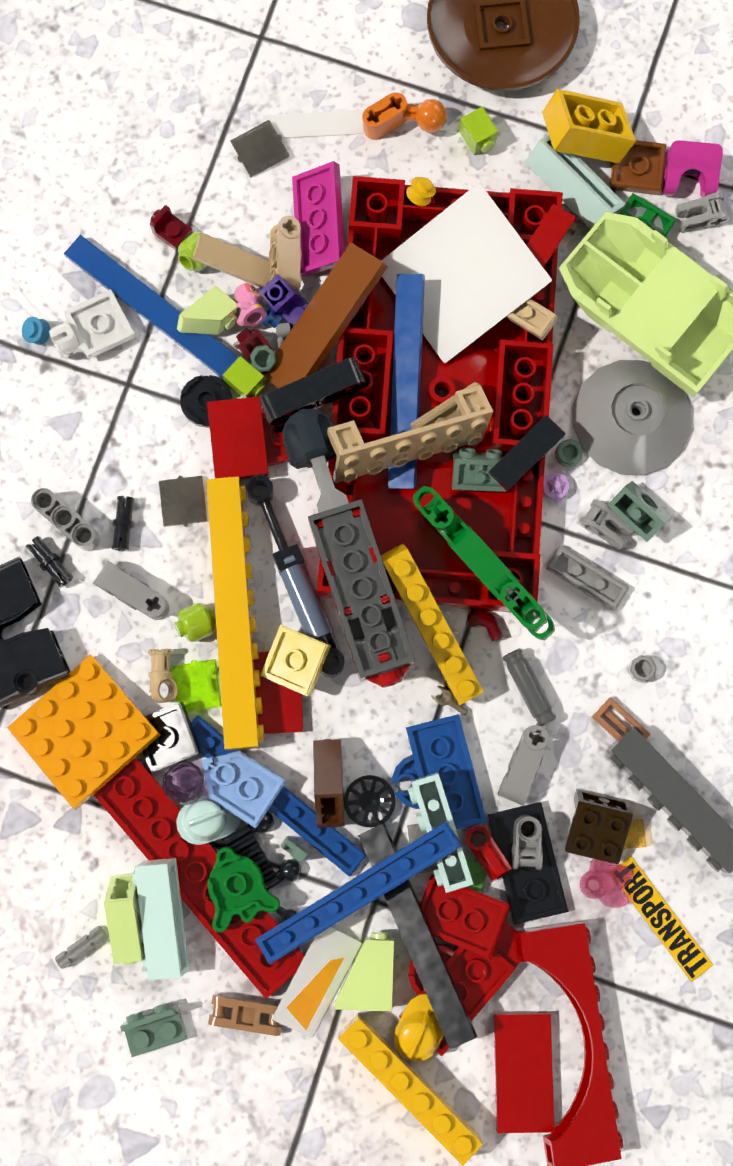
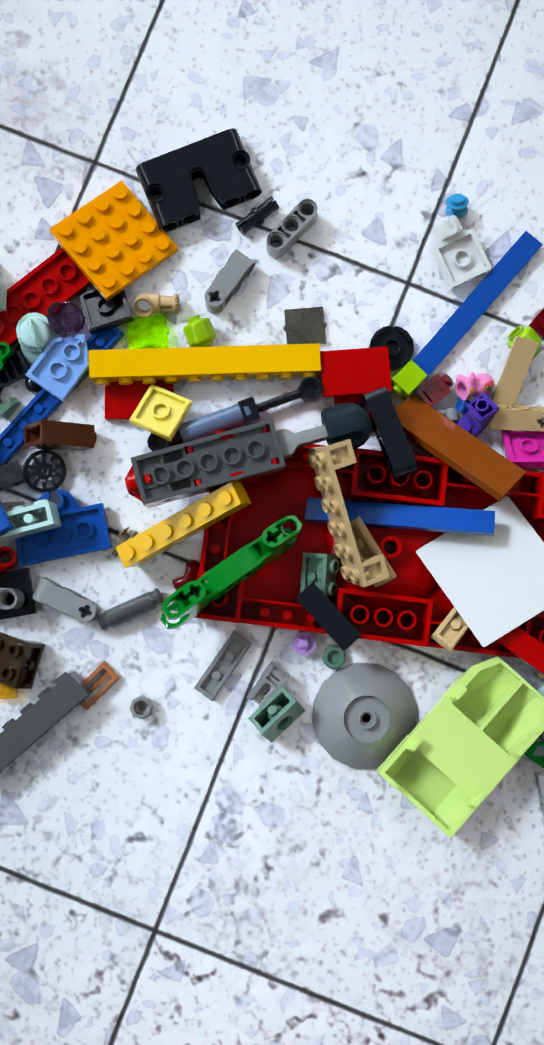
camera: 90 degrees right, 5 degrees up
(123, 523) = (286, 276): black pin -> none
(209, 314) = (466, 350): yellowish green slope -> none
(263, 358) = (425, 394): sand green tile -> none

